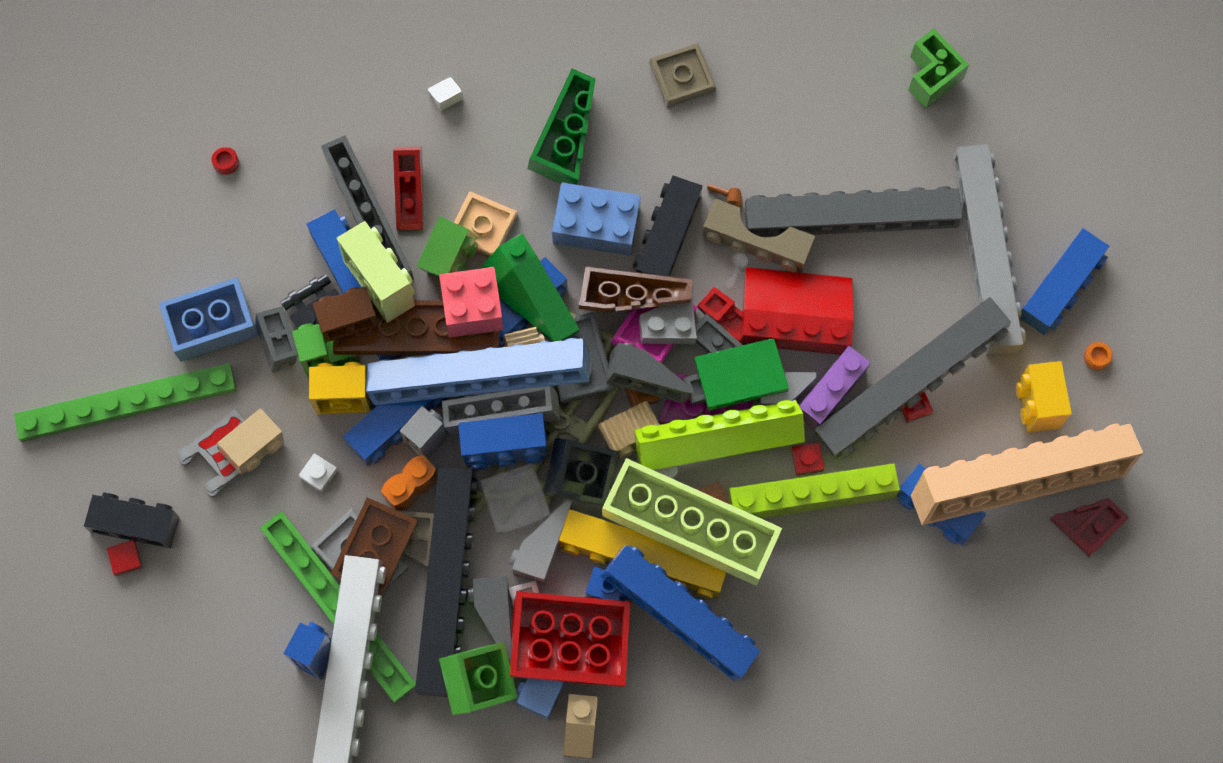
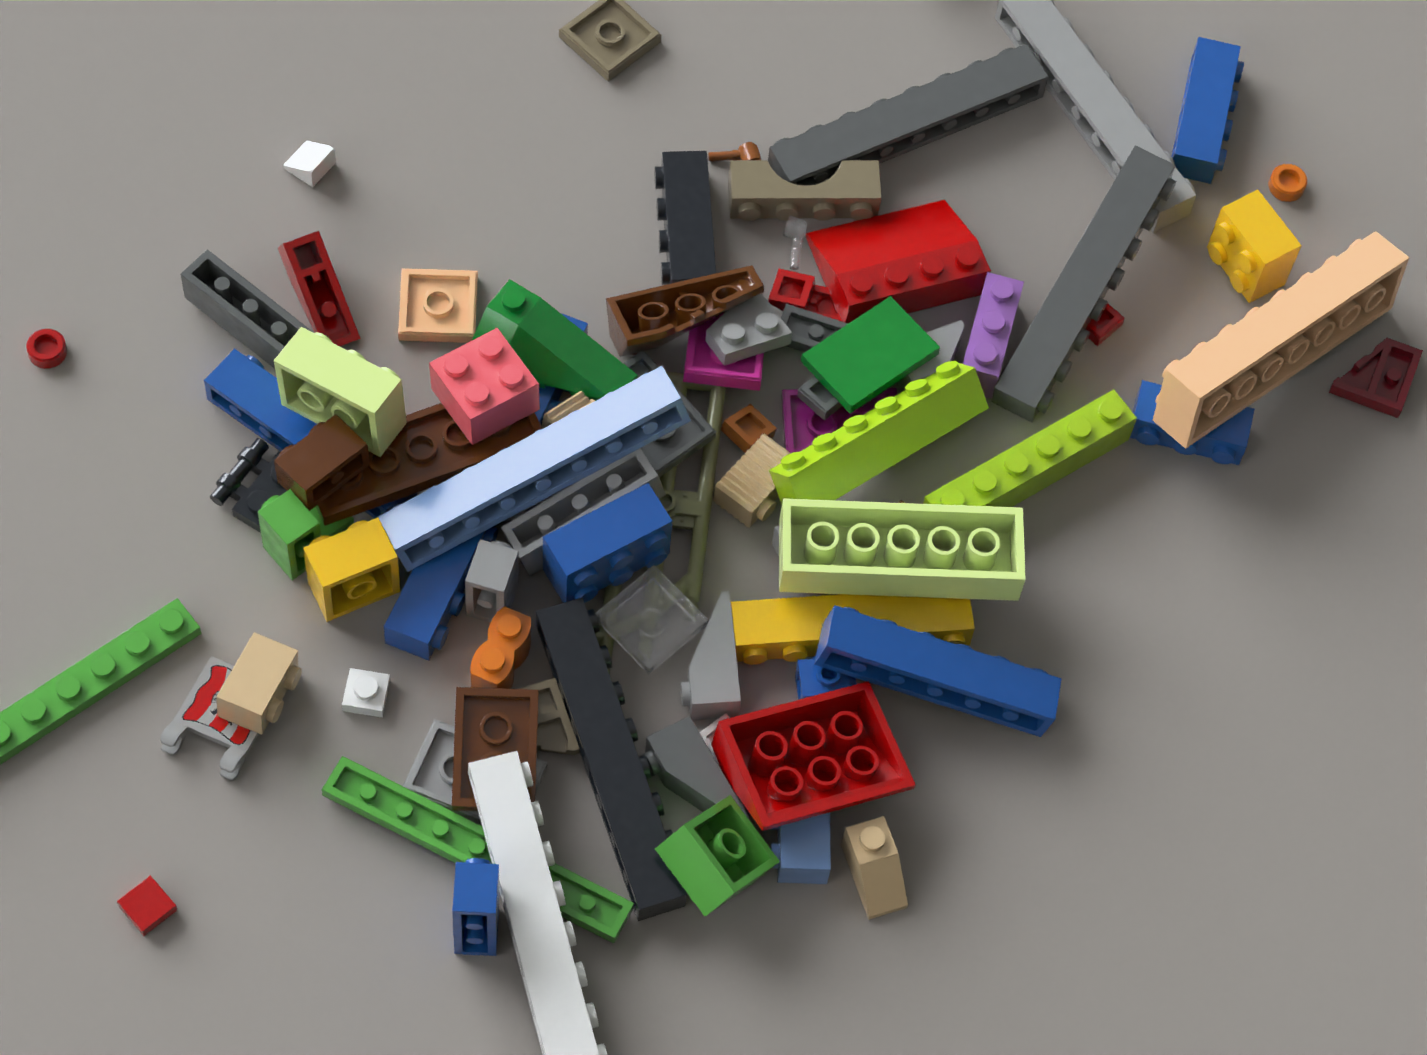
camera: 30 degrees left, 10 degrees down
(131, 520) = (135, 850): black brick -> none
(208, 319) = (124, 550): medium blue brick -> none
(276, 338) = (228, 542): dark grey hinge -> none
(447, 249) = (415, 339): bright green brick -> none
(563, 137) = (497, 159): green wedge -> none
(580, 471) = (723, 549): black brick -> none
(596, 219) = (587, 241): medium blue brick -> none
(643, 373) = (746, 399): dark grey slope -> none
(807, 459) = (997, 432): red plate -> none

